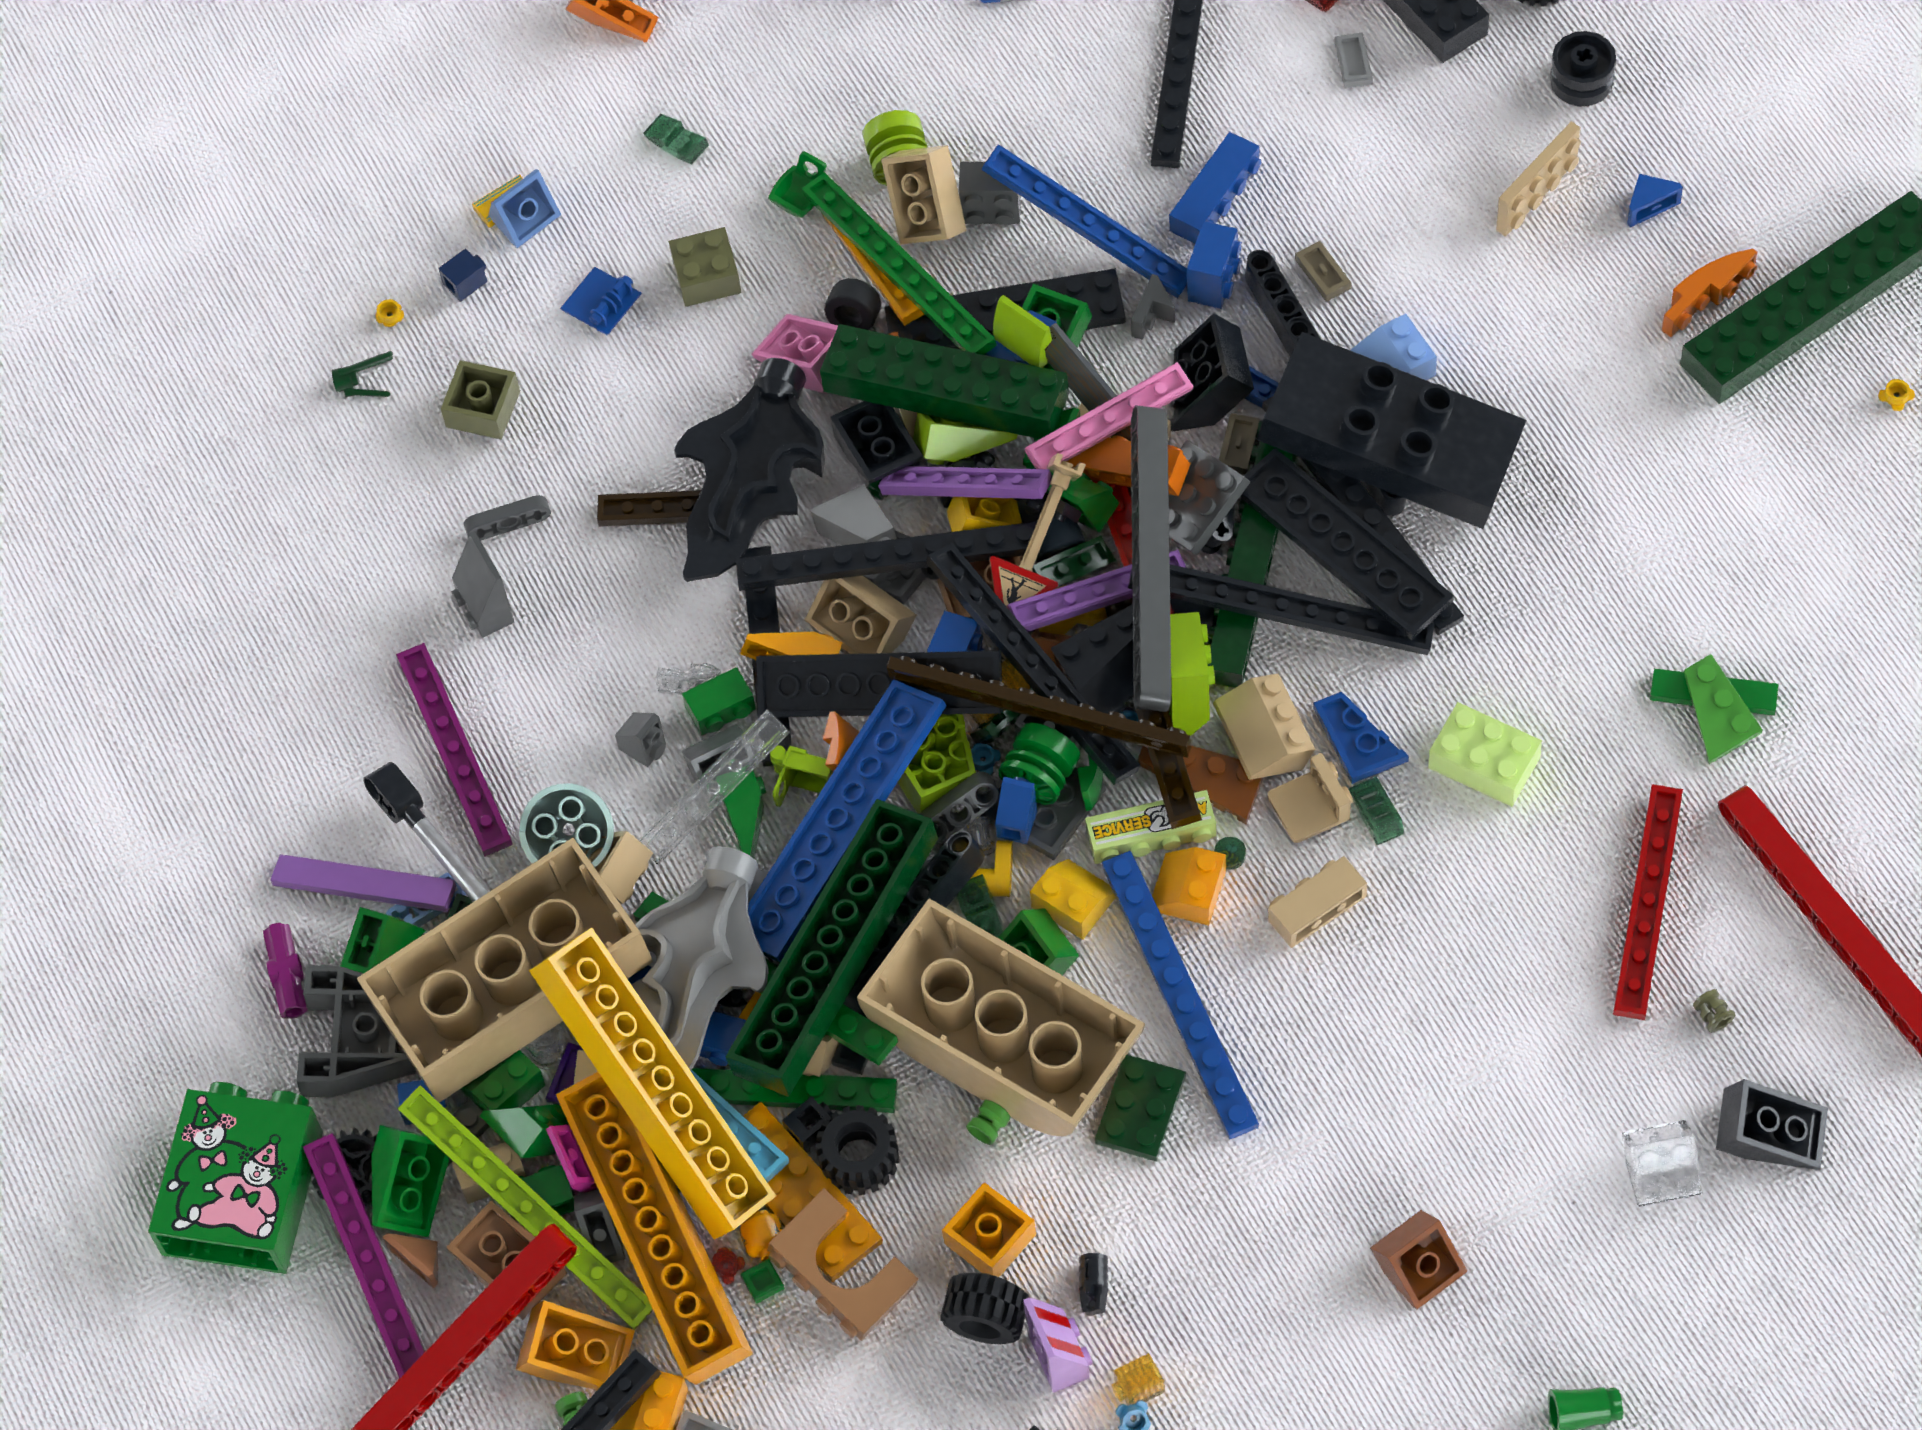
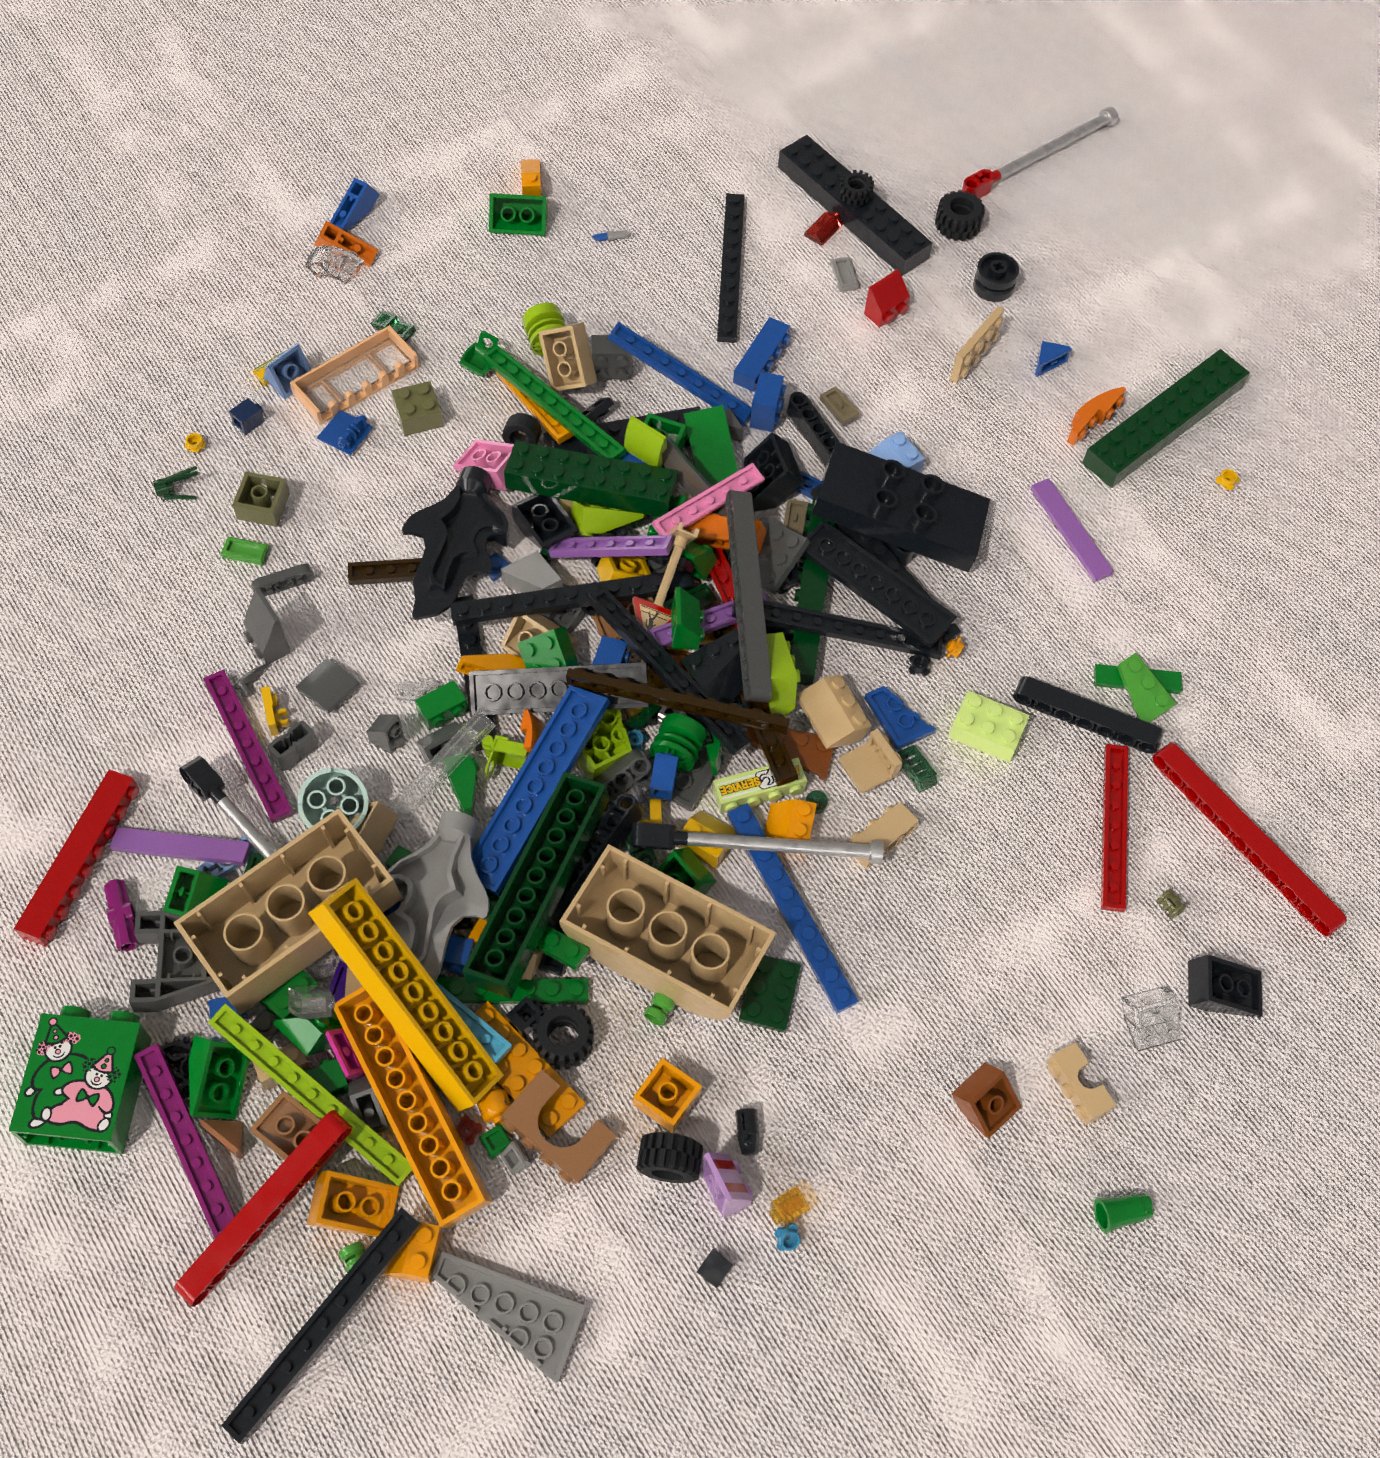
camera: 15 degrees left, 0 degrees up
(229, 892) = (77, 858): none -> red brick
(456, 474) = (245, 551): none -> bright green tile
(458, 655) = (248, 678): none -> dark grey bar
(490, 711) = (273, 717): none -> yellow plate
(520, 748) = (291, 746): none -> dark grey brick
(528, 1089) = (310, 1002): none -> clear brick
(564, 669) = (327, 685): none -> dark grey slope
(594, 40) = (334, 263): none -> clear brick
(617, 213) = (354, 374): none -> window
(786, 1302) = (515, 1158): none -> light grey slope
(806, 500) = (497, 563): none -> blue plate
(869, 629) = (548, 650): none -> green brick
(966, 270) = (598, 408): none -> black plate
(1011, 893) = (666, 837): none -> flat silver piece
(1061, 593) = (686, 621): none -> green slope
(1124, 331) = (711, 443): none -> green tile
(1397, 655) = (919, 660): none -> black plate
(1410, 104) = (887, 299): none -> red slope
(1450, 639) = (954, 647): none -> light orange plate
(1559, 1269) = (1088, 1103): none -> tan arch
(1632, 742) = (1088, 715): none -> black beam
(1648, 467) = (1072, 530): none -> medium lavender tile

